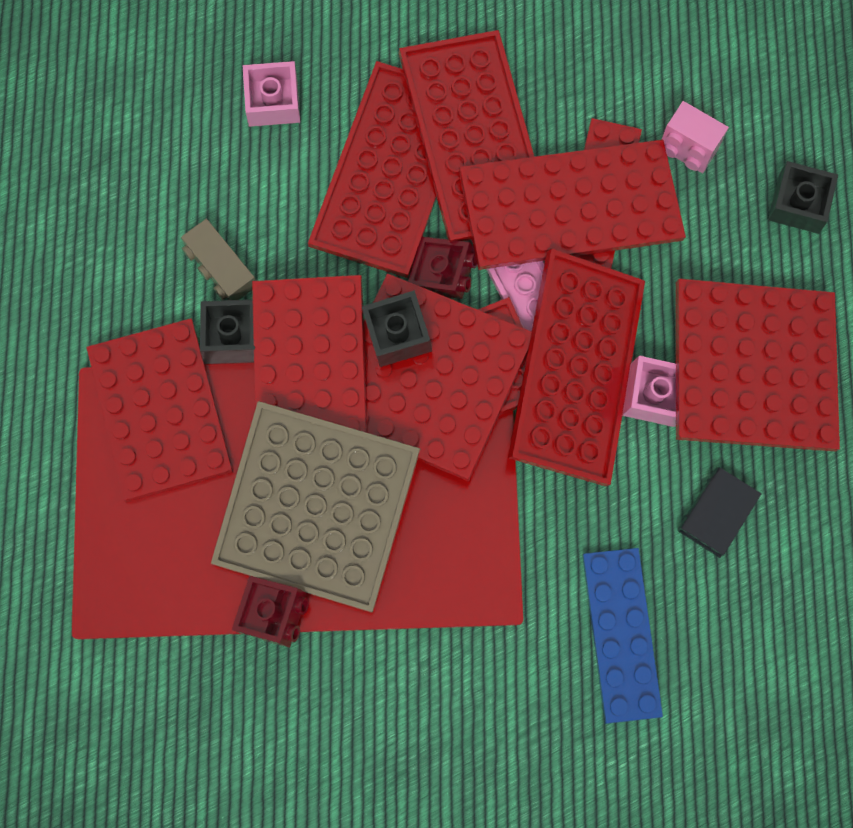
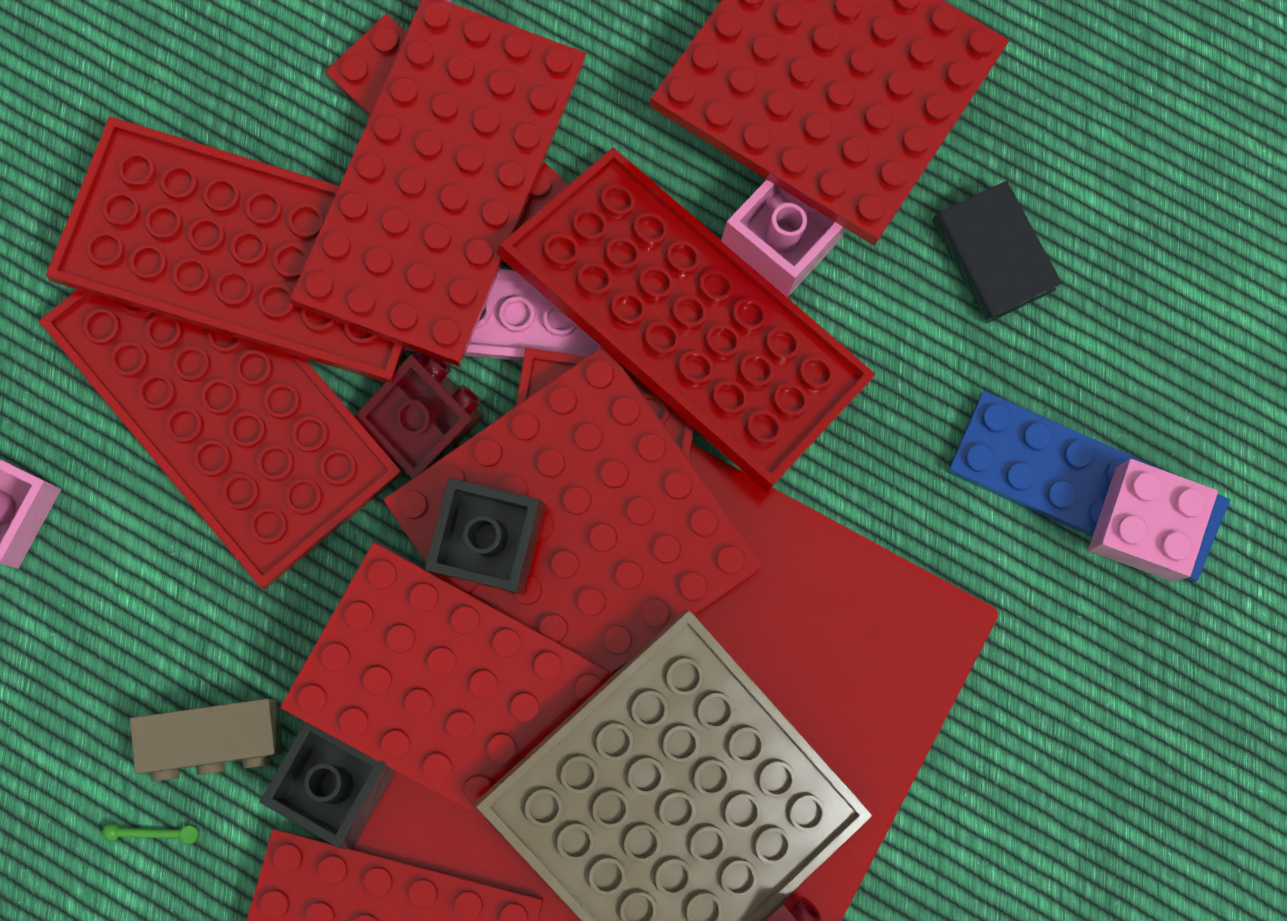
camera: 60 degrees left, 5 degrees up
(166, 282) = (188, 834): none -> bright green hinge
(621, 673) = (1153, 520): none -> bright pink brick

